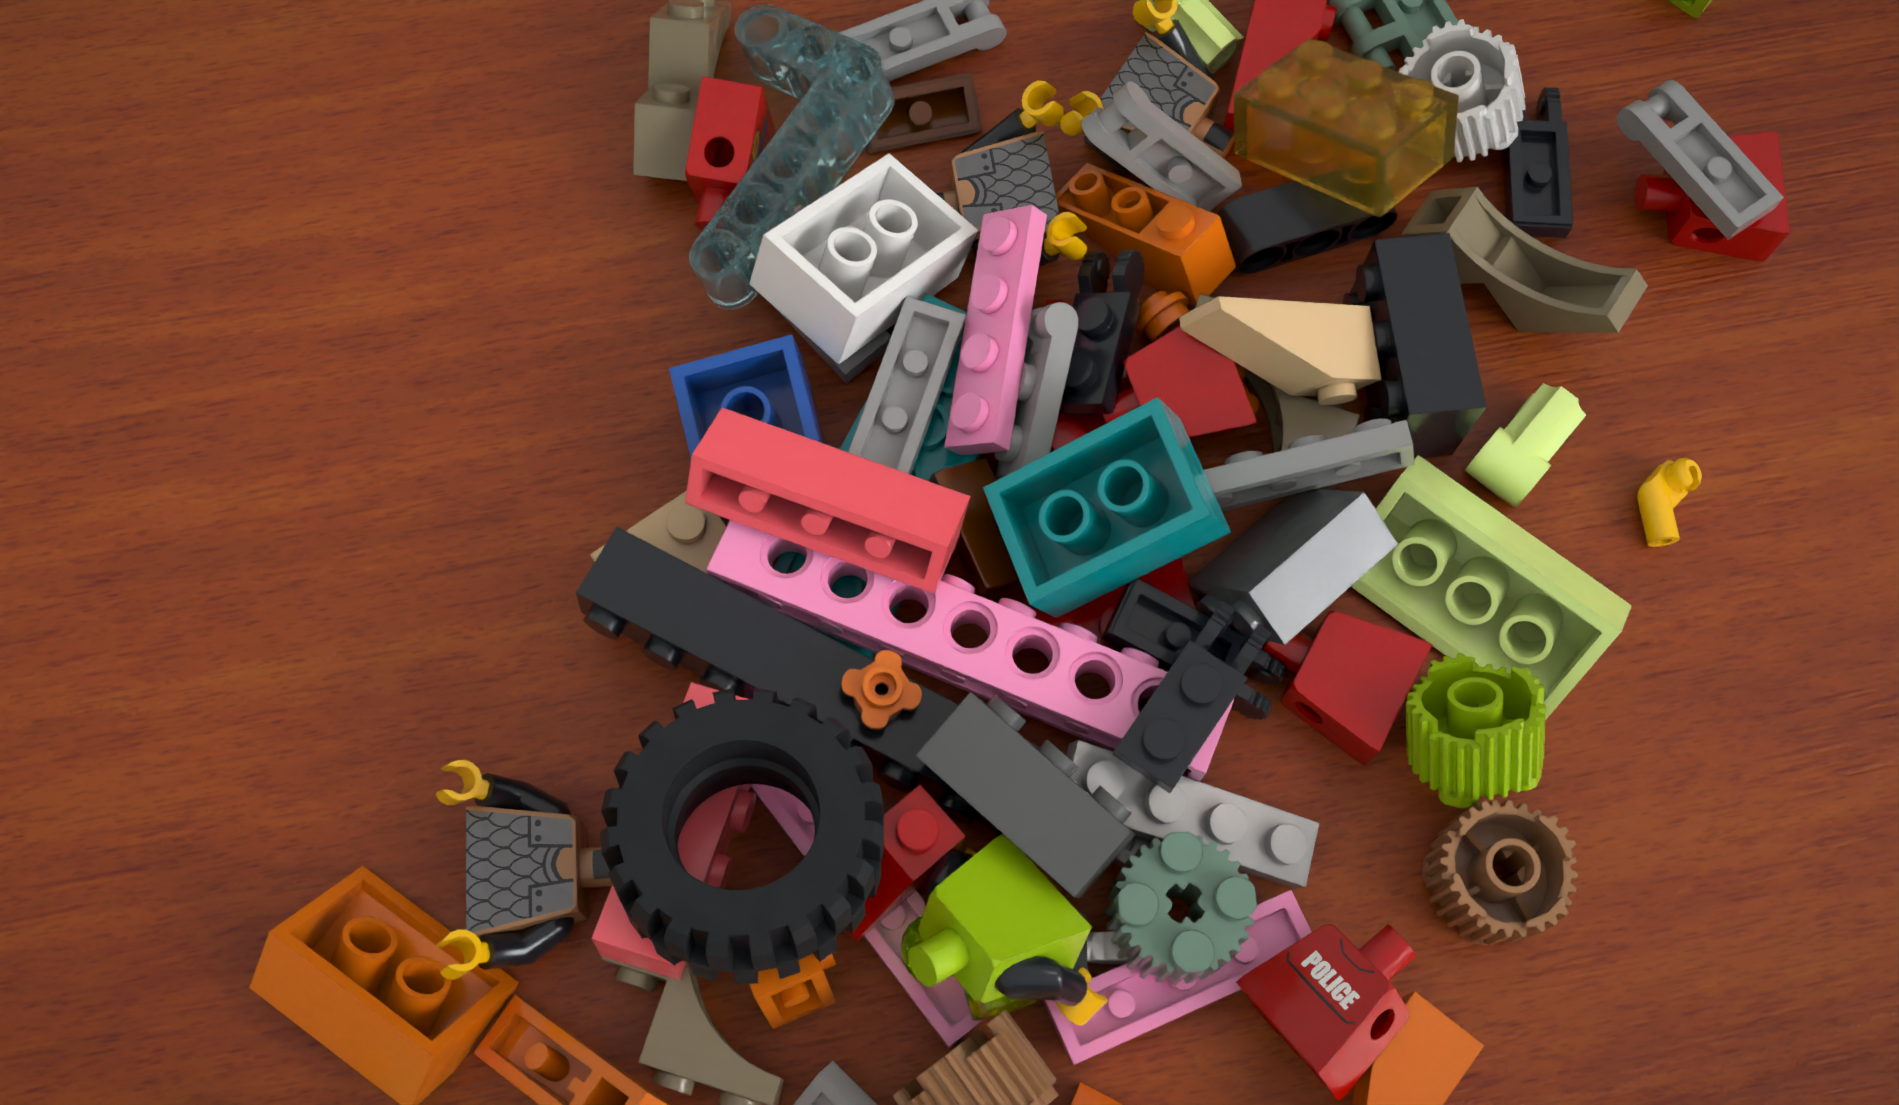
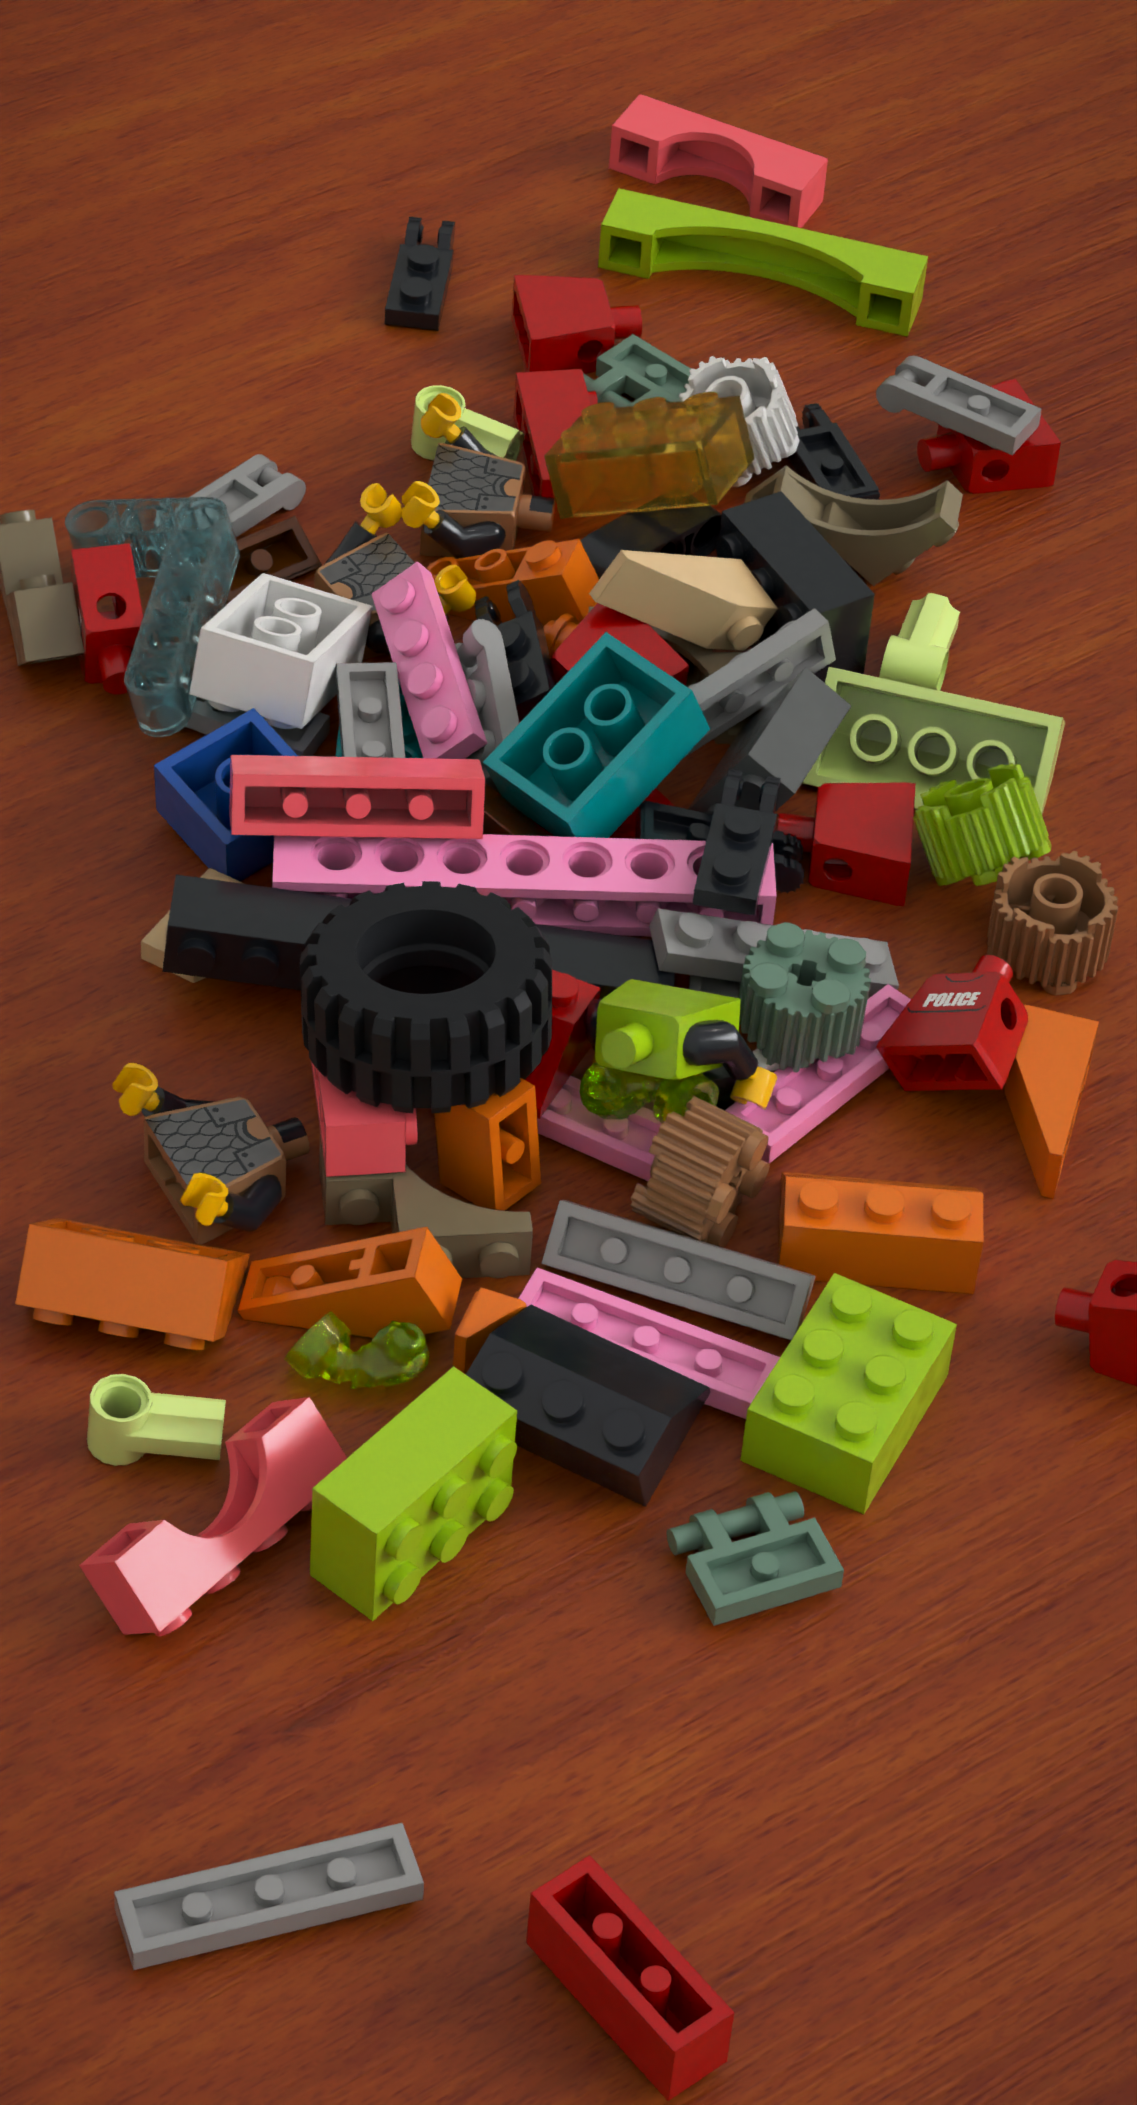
camera: 25 degrees left, 25 degrees down
(1028, 792) = (638, 934): dark grey brick -> none
(1160, 150) = (498, 508): light grey plate -> none
(1661, 494) = (1052, 655): yellow arm -> none

